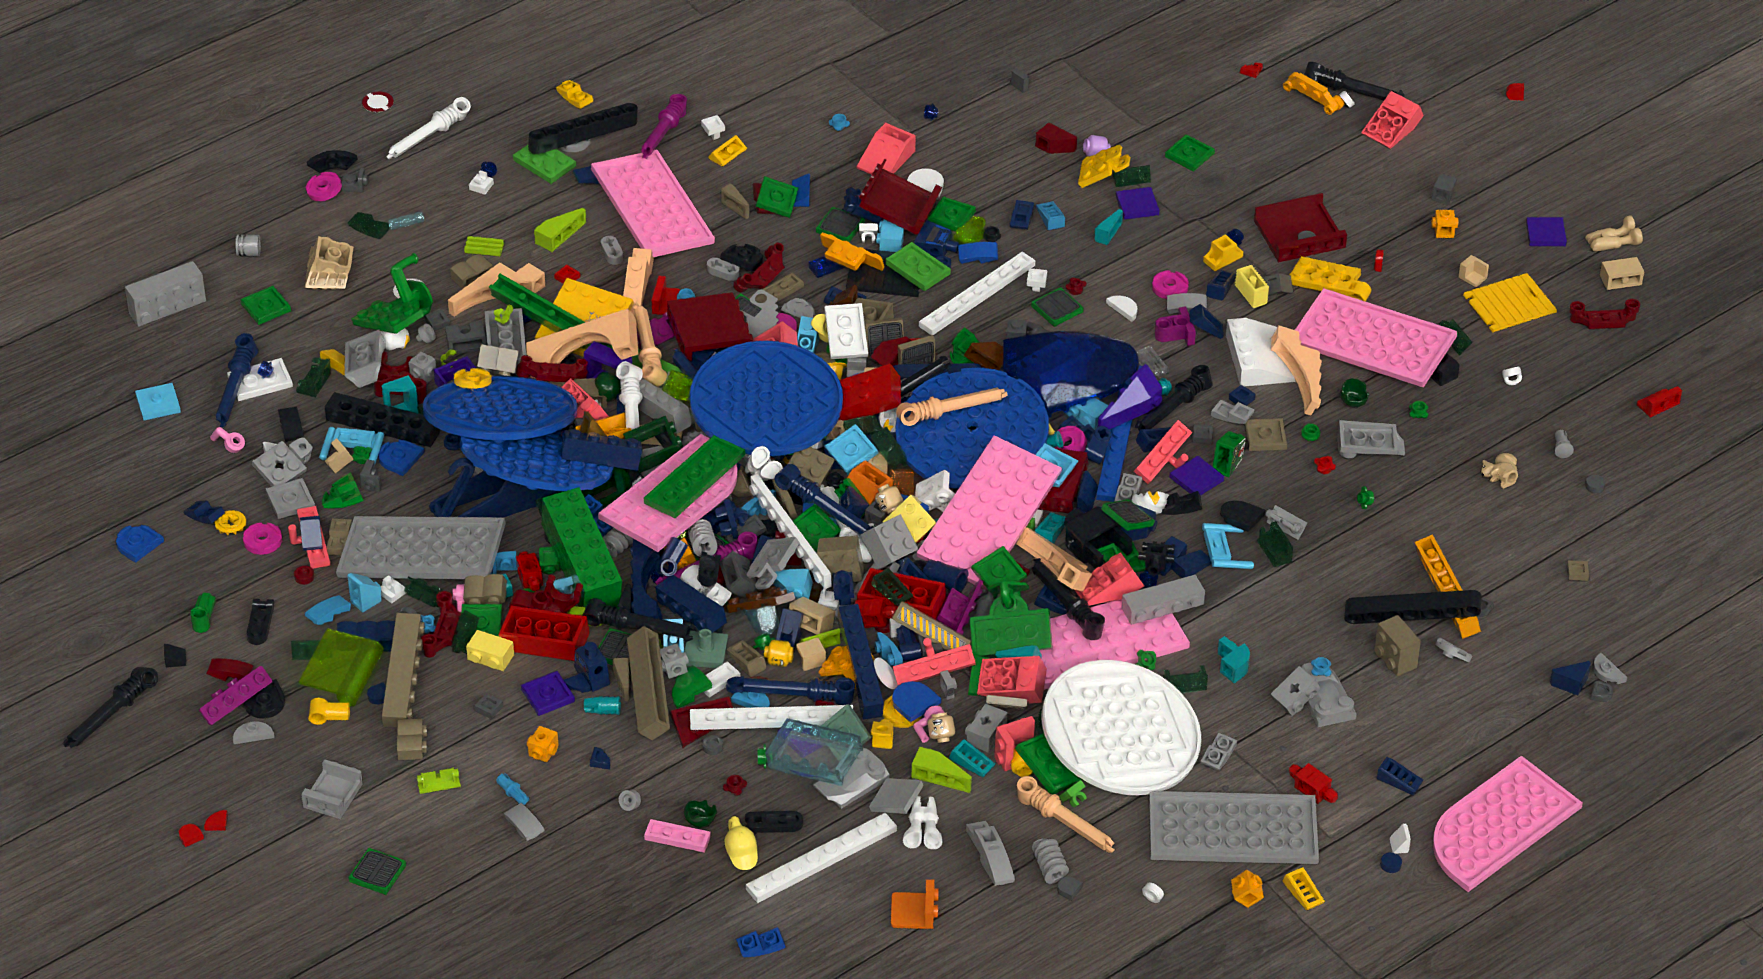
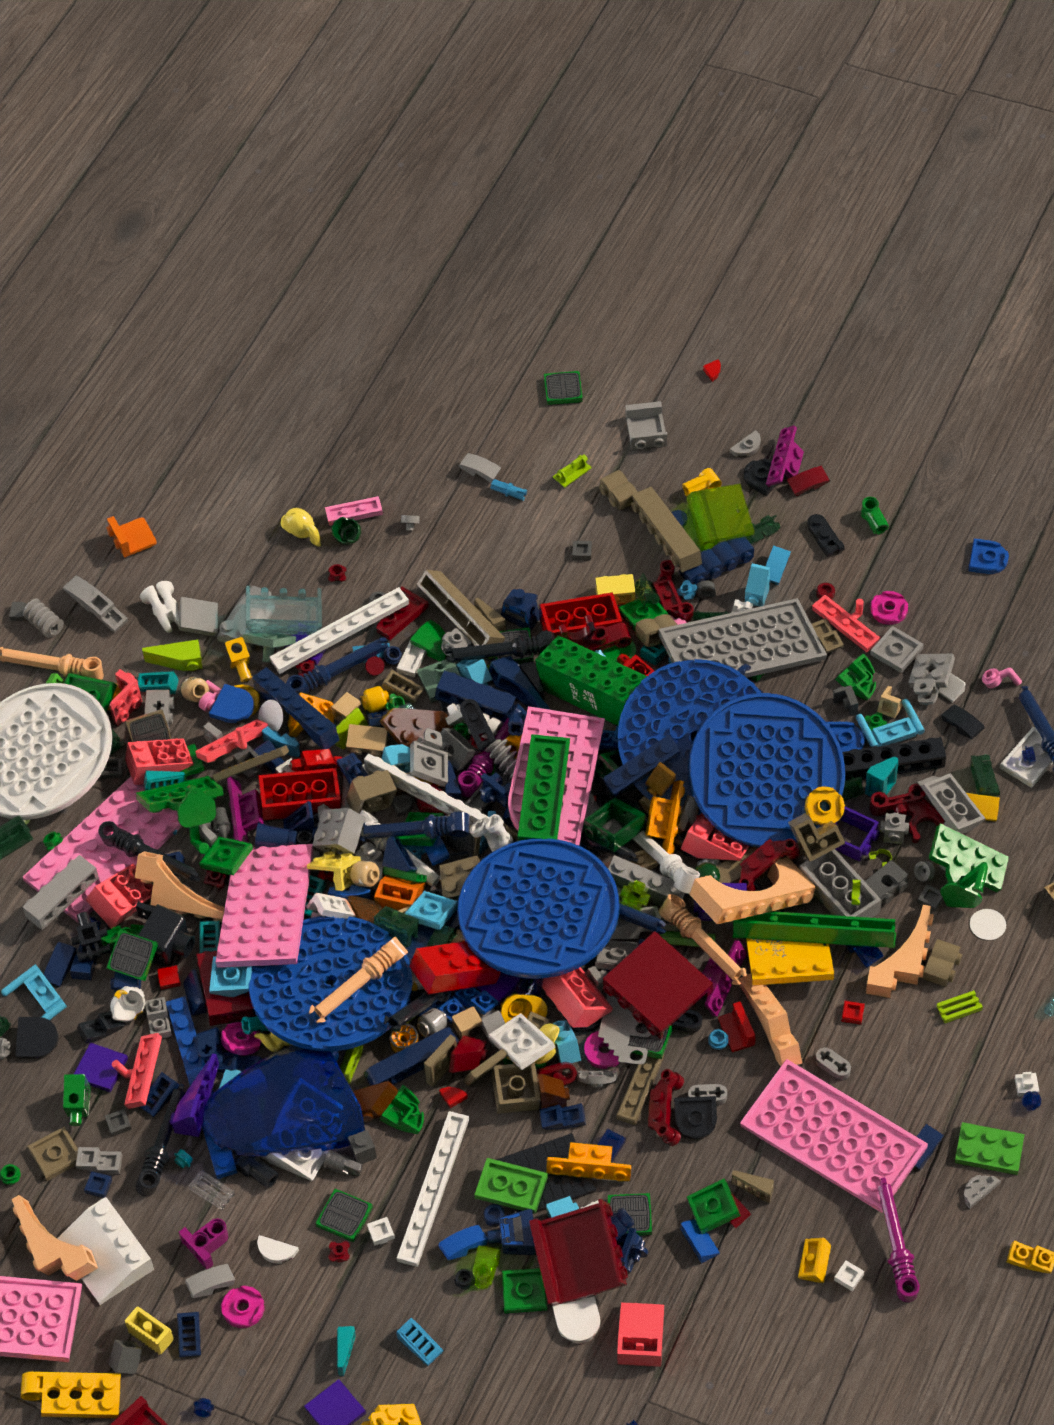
camera: 155 degrees right, 10 degrees up
(122, 697) = (869, 420): black piece -> none
(174, 656) = (864, 474): black slope -> none
(190, 834) = (724, 351): red tile -> none
(203, 512) = (959, 605): dark blue slope -> none
(235, 518) = (923, 601): yellow gear -> none
(311, 533) = (846, 617): slope -> none
(543, 744) = (510, 528): light orange brick -> none
(547, 693) = (544, 582): dark purple tile -> none
(559, 229) = (903, 1054): lime slope -> none
(582, 128) = (972, 1204): black beam -> none
(599, 759) = (460, 548): dark blue tile -> none
(603, 705) = (489, 588): teal hinge -> none
(756, 945) = (236, 463): blue slope -> none
(762, 760) = (328, 602): green plate -> none
(774, 821) = (285, 555): black plate -> none
(821, 857) = (231, 547): white plate -> none
(839, 122) = (724, 1357): dark azure plate -> none
(887, 575) = (317, 783): clear green slope -> none
(1022, 214) = (449, 1325): dark blue slope -> none
(1205, 320) = (175, 1260): dark blue slope -> none
(1222, 252) = (201, 1369): yellow brick -> none

